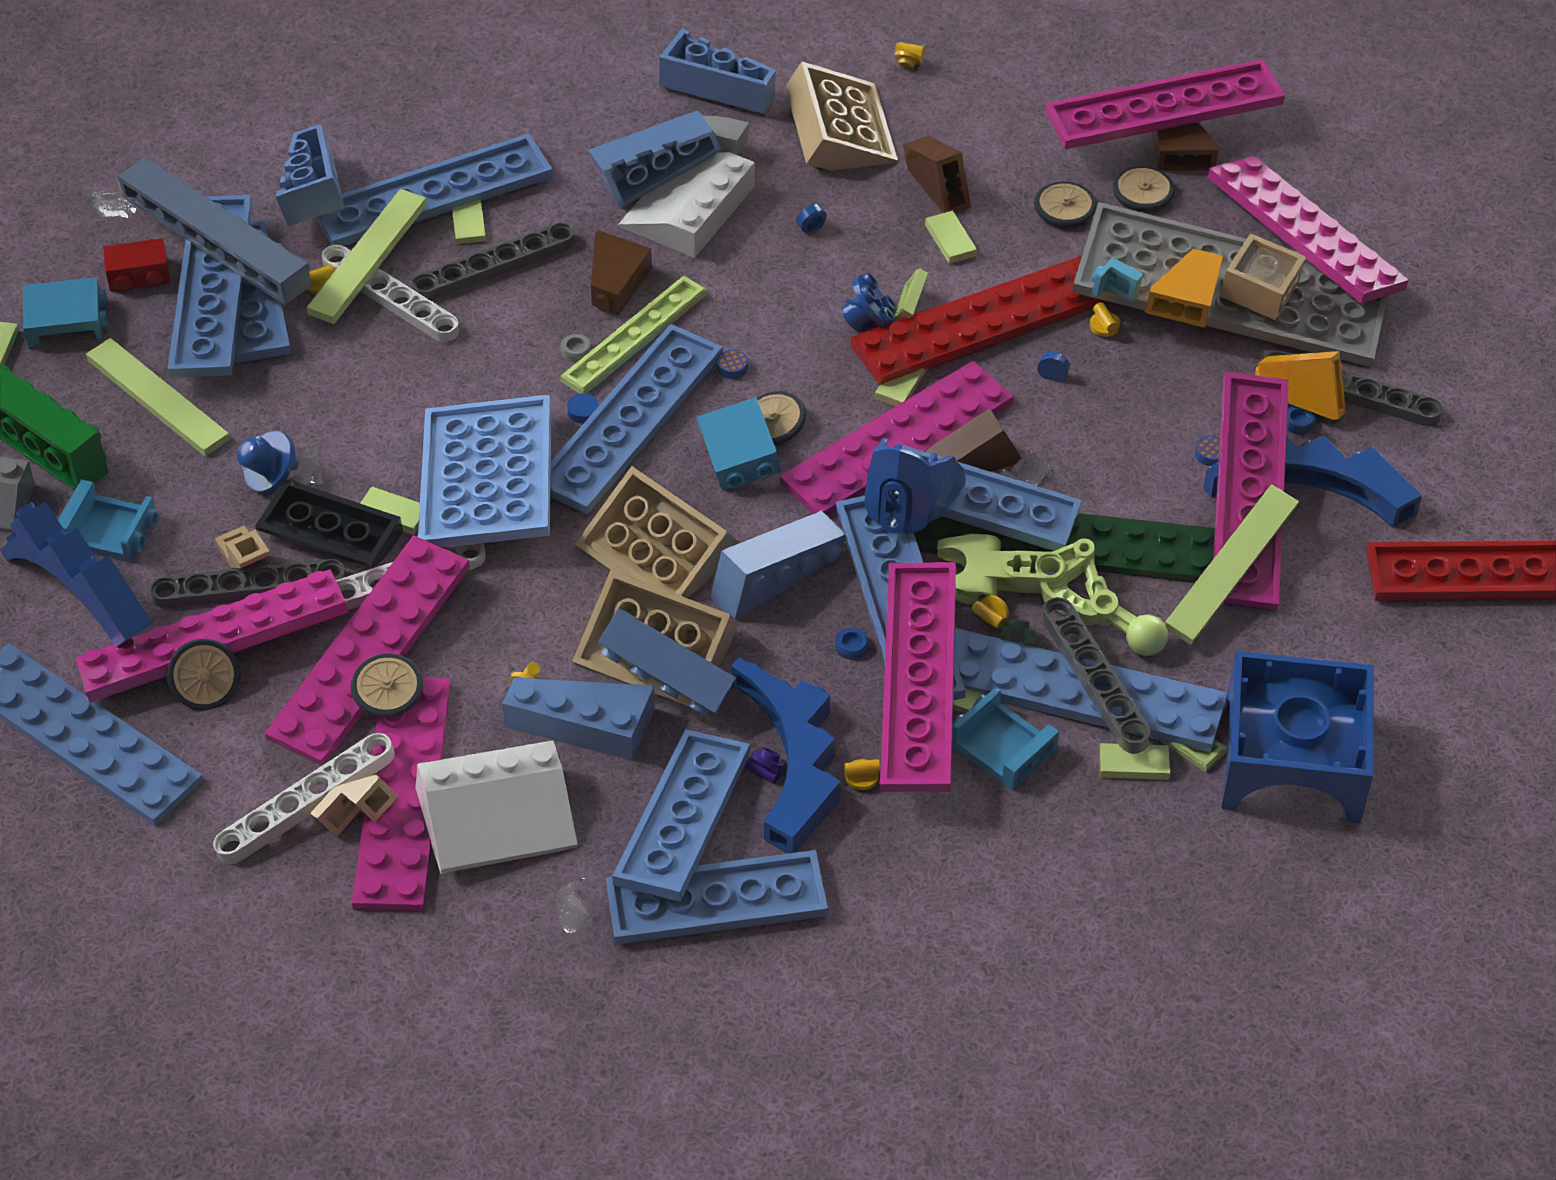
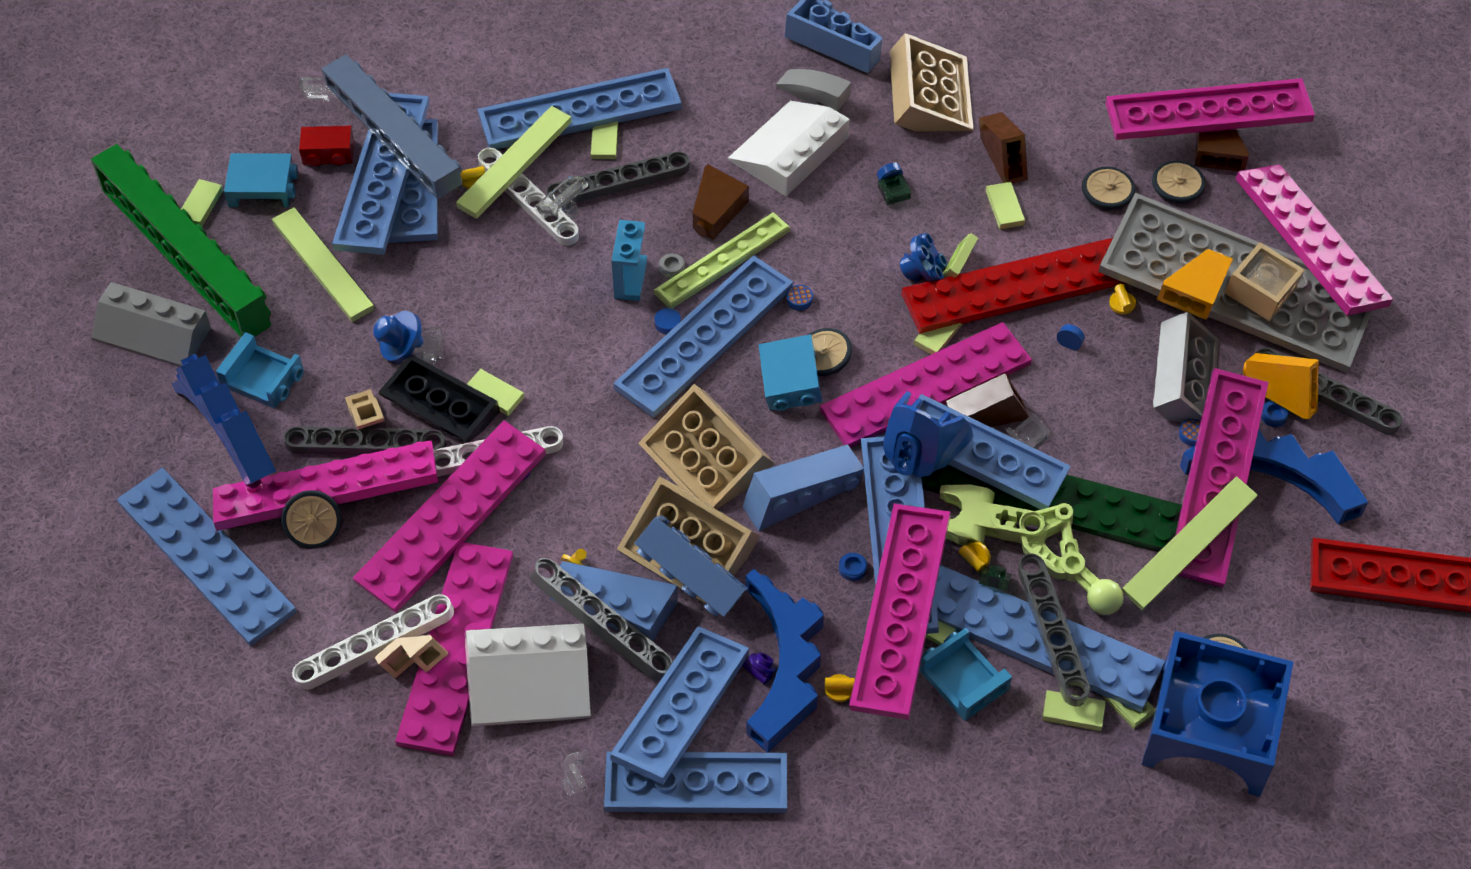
camera: 10 degrees right, 5 degrees up
(310, 178) = (480, 87): medium blue wedge -> none
(387, 685) = (458, 551): tan wheel -> none
(433, 287) = (562, 197): none -> clear tile
(486, 472) = (575, 370): light blue plate -> none
(527, 344) = (627, 263): none -> dark azure panel
(574, 729) = (597, 622): none -> dark grey beam
(653, 156) = (766, 103): medium blue wedge -> none
(820, 234) = (894, 189): none -> clear green plate
(909, 54) = (1000, 34): yellow plate -> none
(1117, 278) = (1138, 266): medium azure bracket -> none
(1188, 383) = (1184, 368): none -> light grey slope

